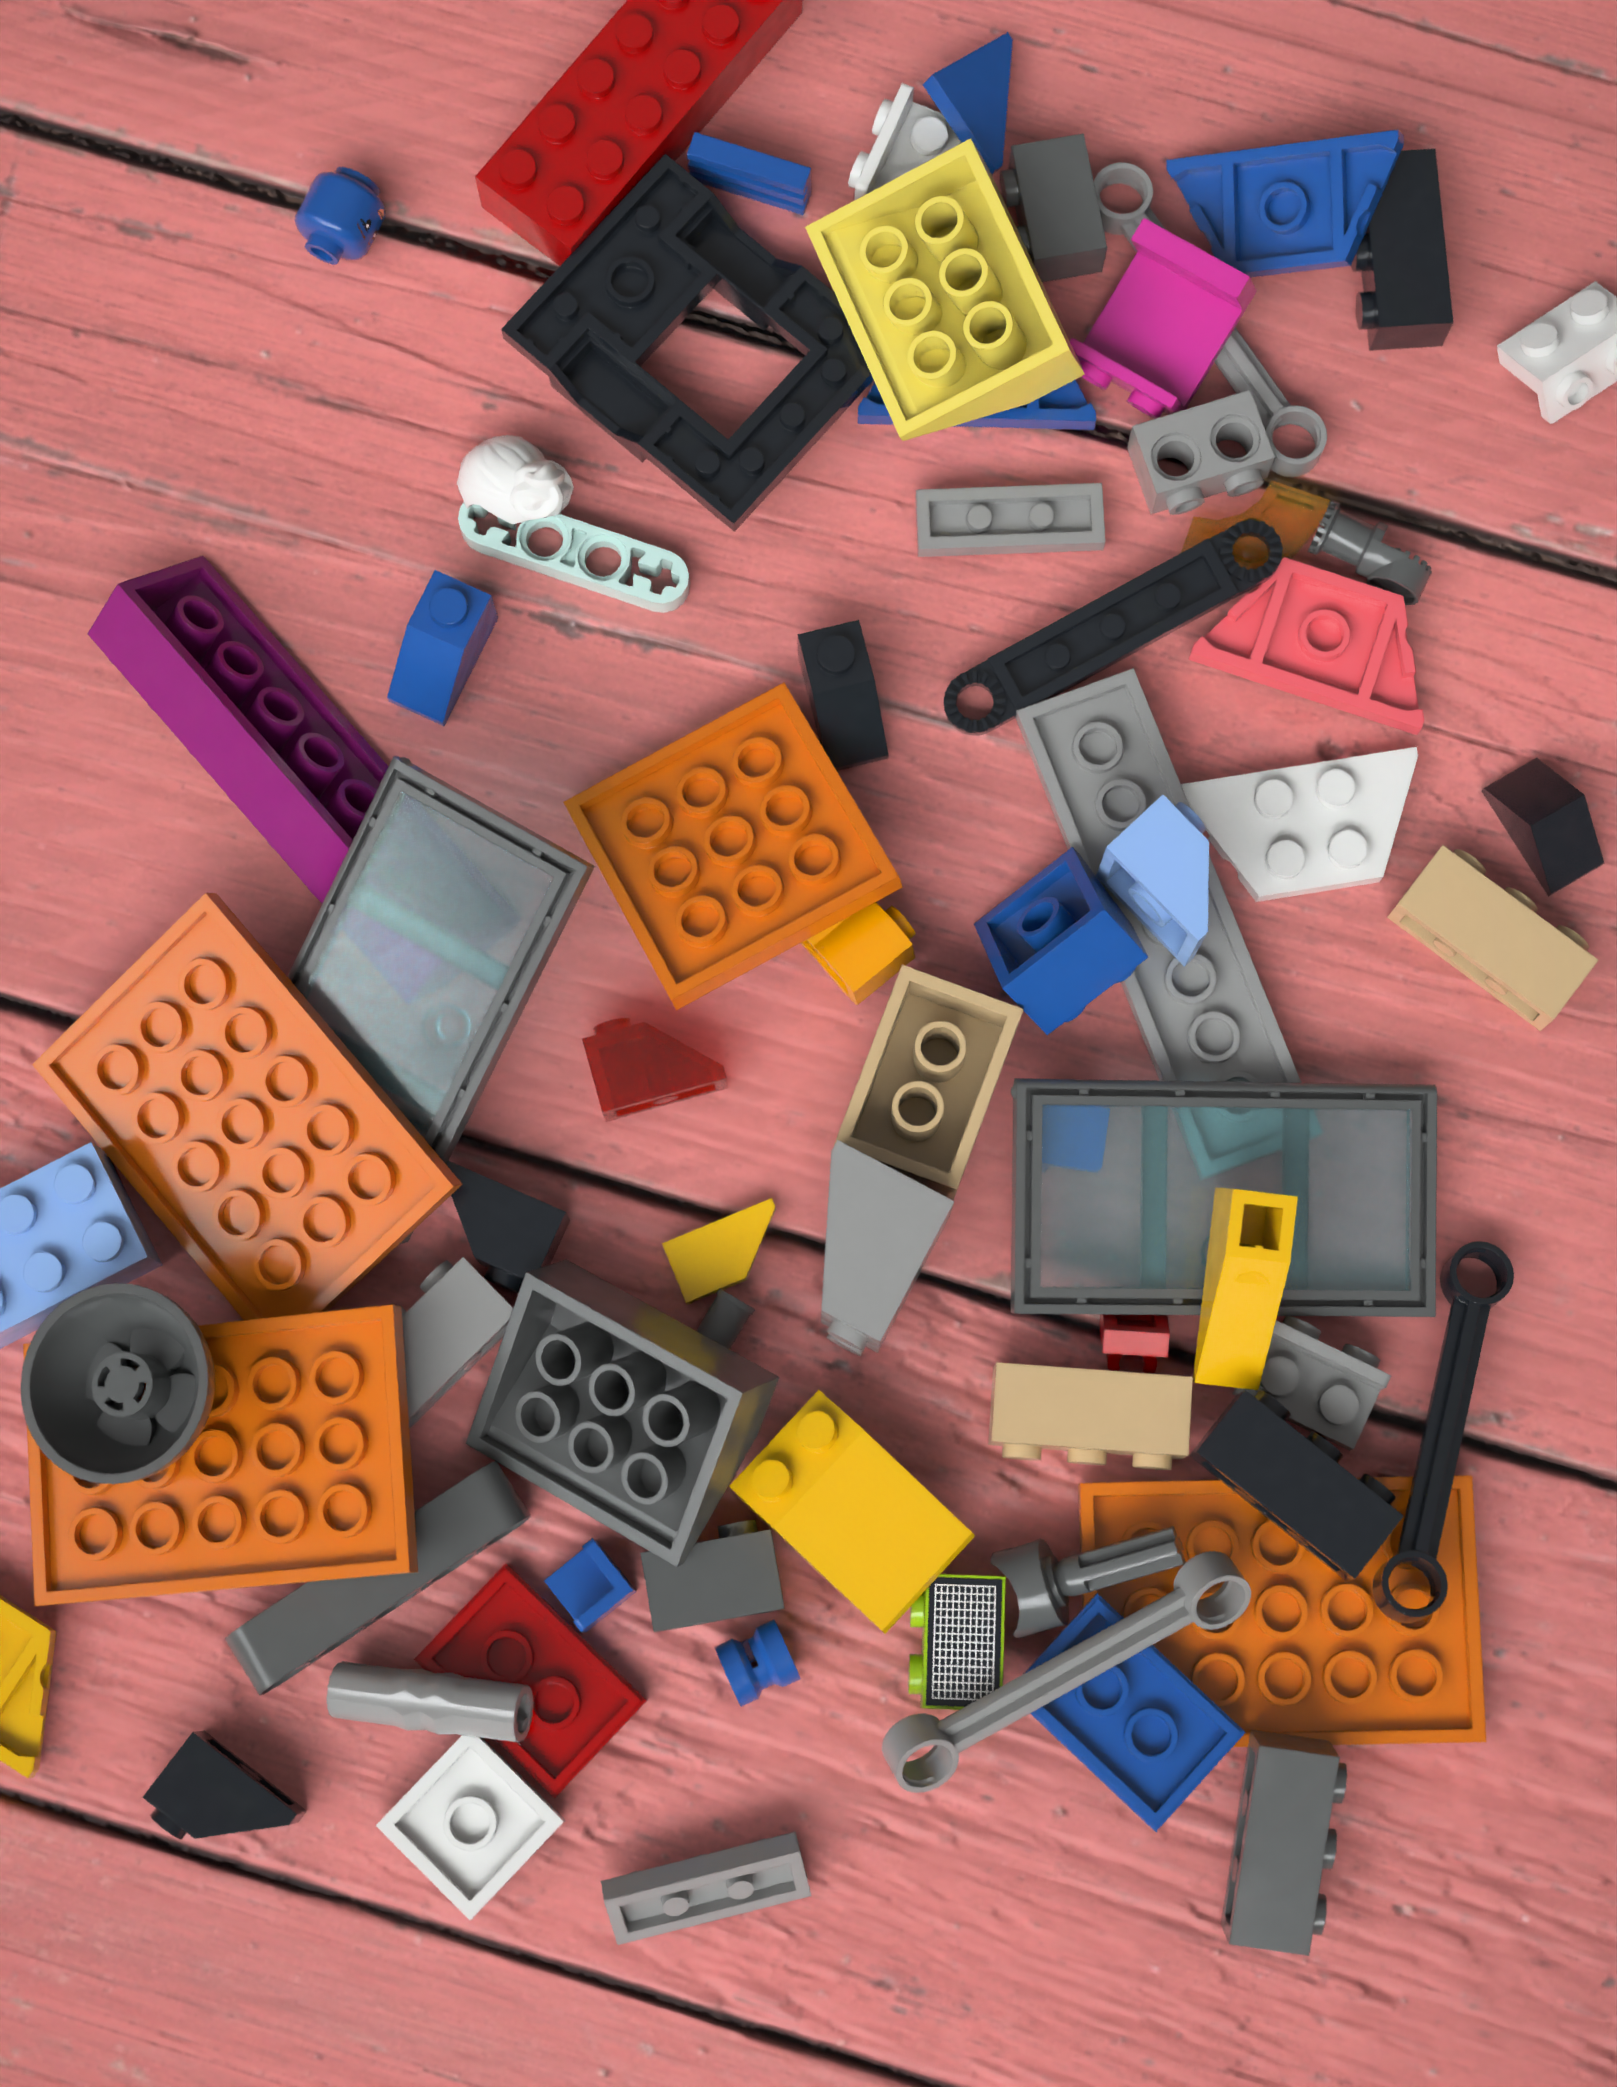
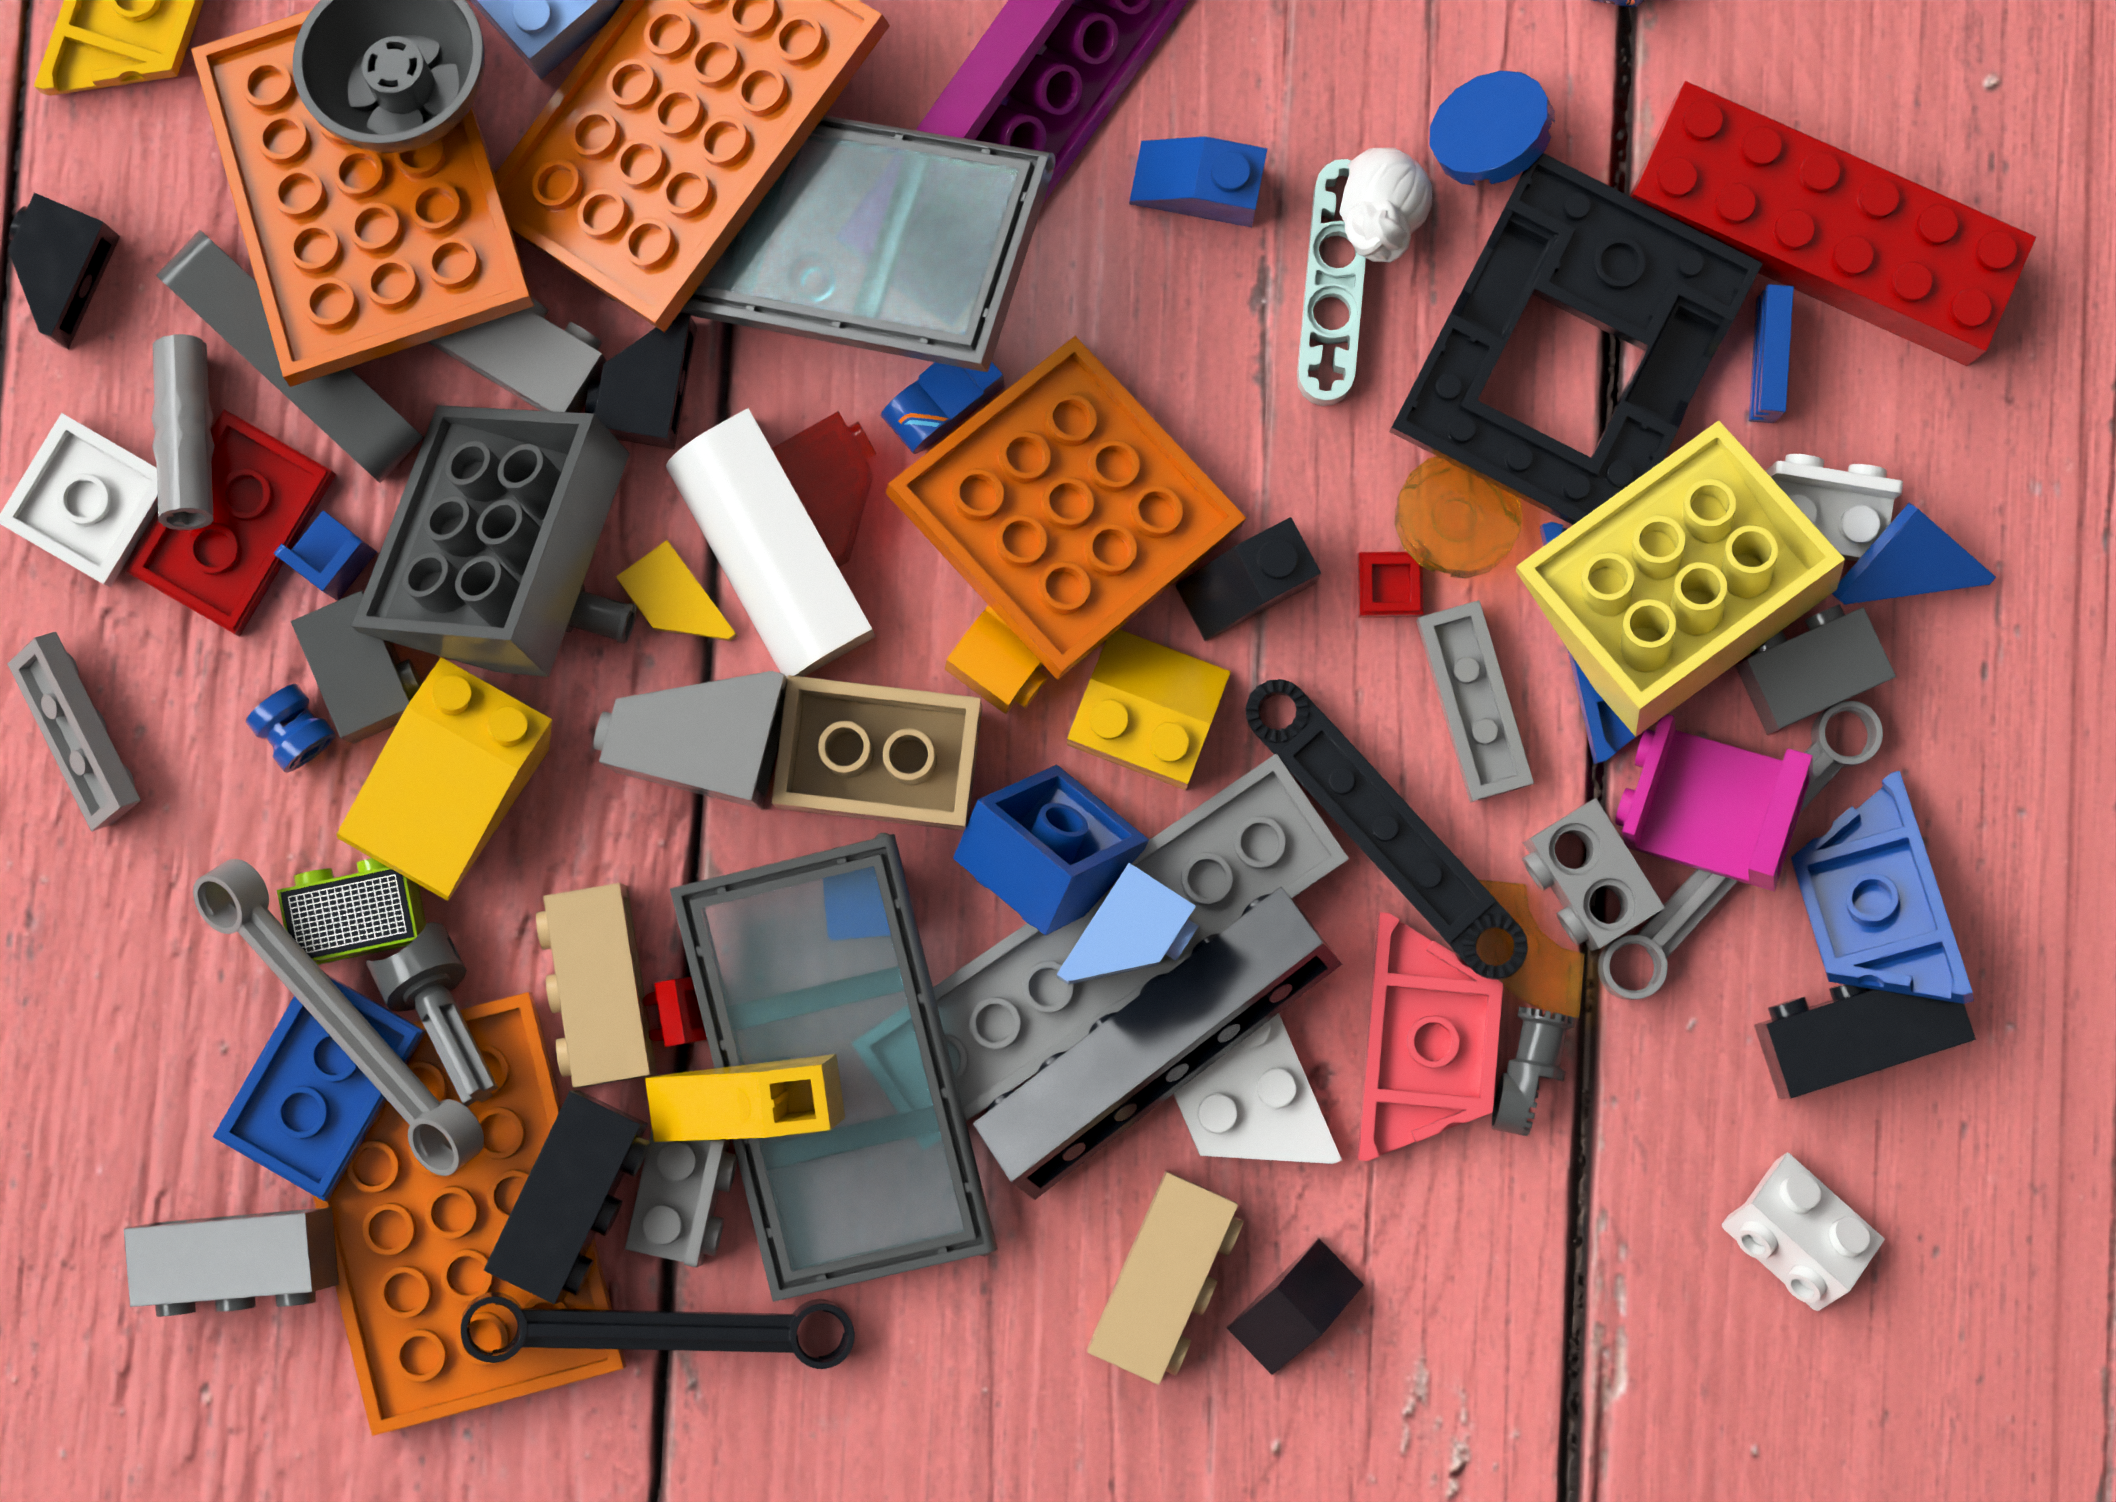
camera: 80 degrees right, 5 degrees up
(468, 366) = (1492, 127): none -> blue tile
(595, 950) = (939, 402): none -> blue leg
(695, 1144) = (768, 546): none -> white brick
(832, 494) = (1455, 519): none -> clear yellow tile
(877, 572) = (1389, 585): none -> red tile
(947, 819) = (1148, 708): none -> yellow slope
(1271, 883) = (1156, 1043): none -> brick

